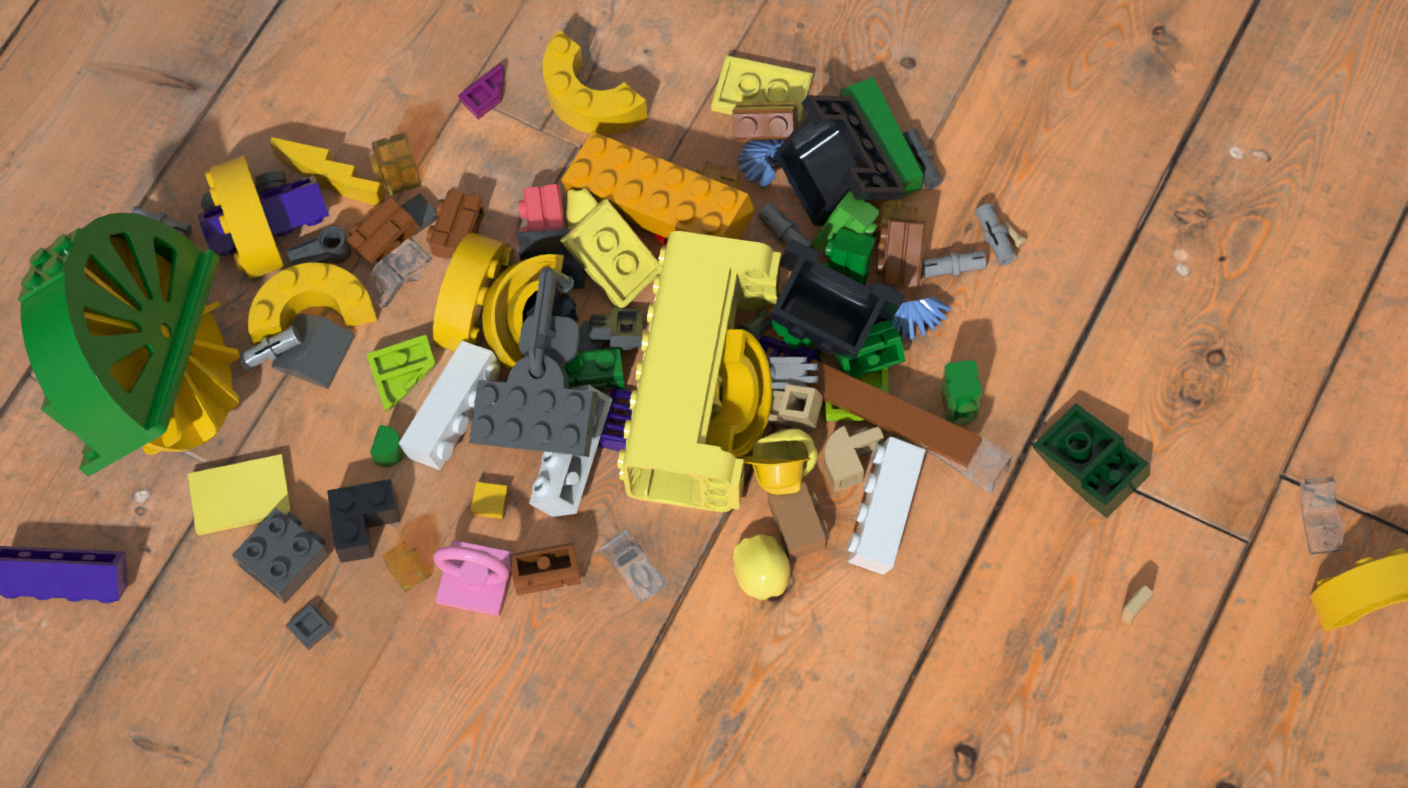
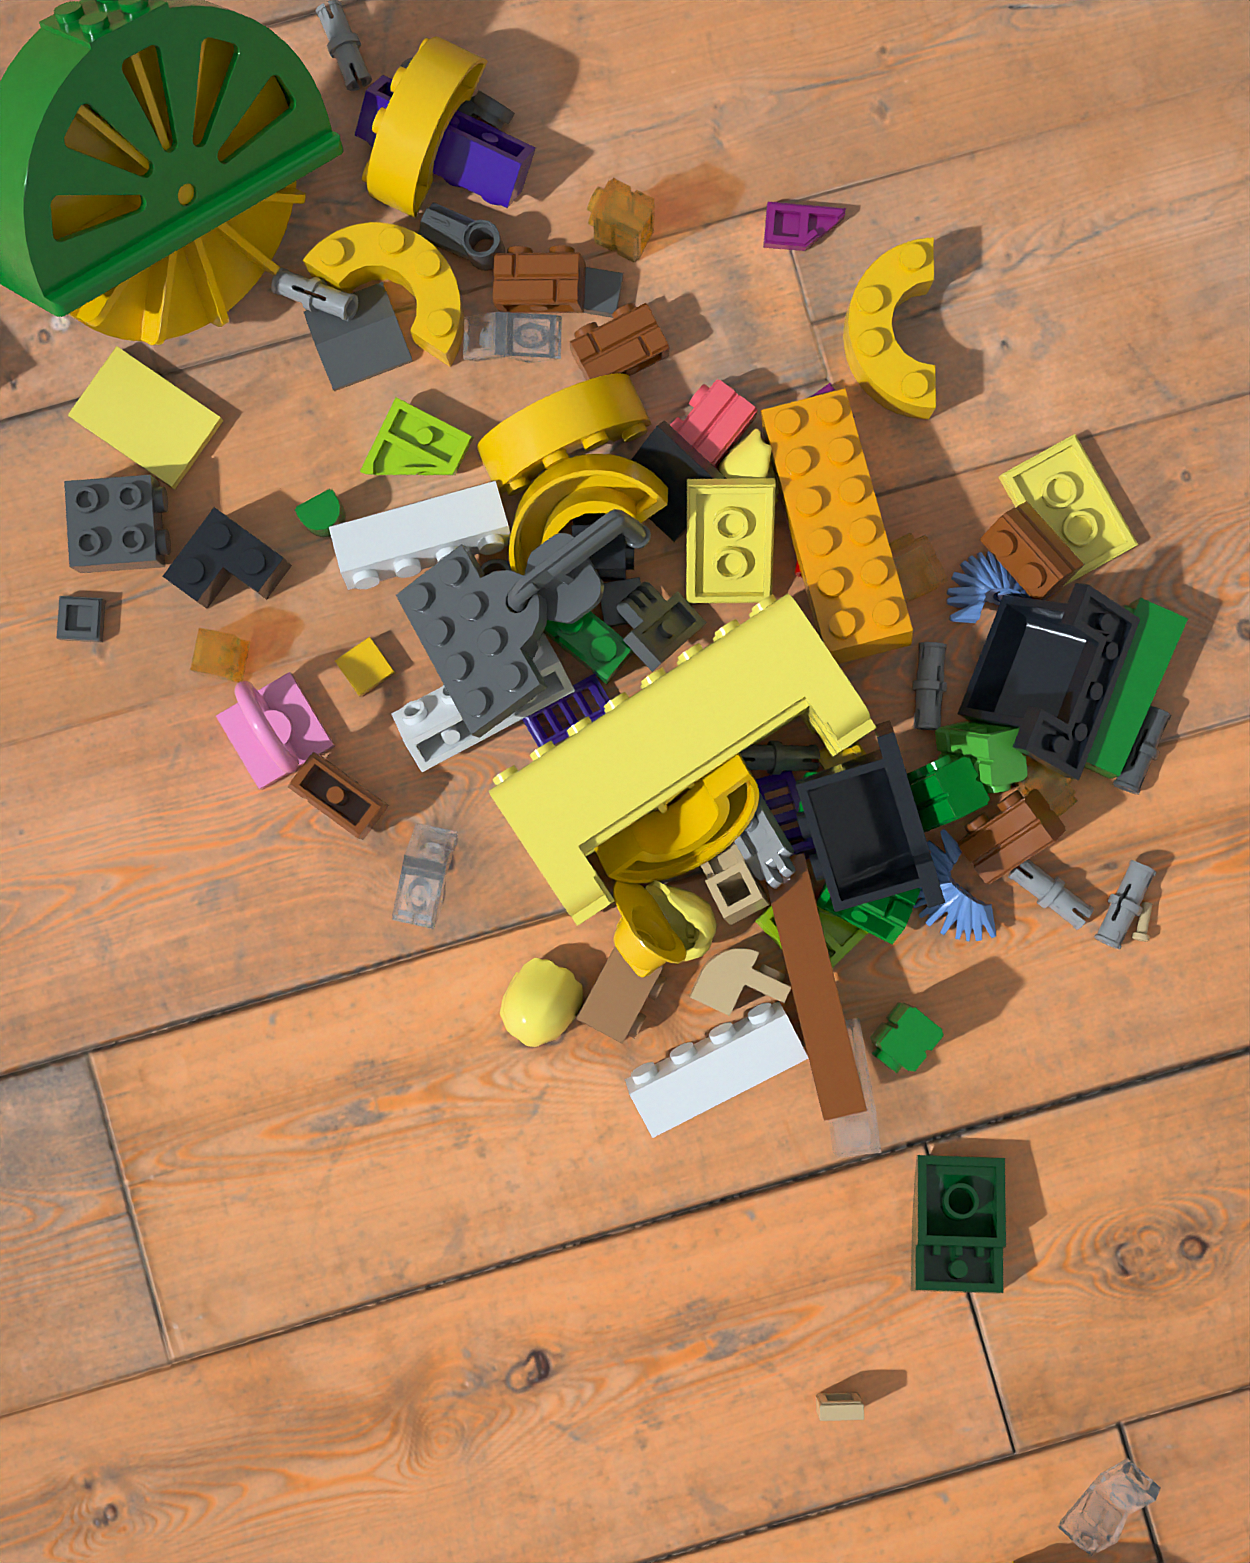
camera: 45 degrees right, 20 degrees up
(331, 175) = (554, 143): yellow slope -> none

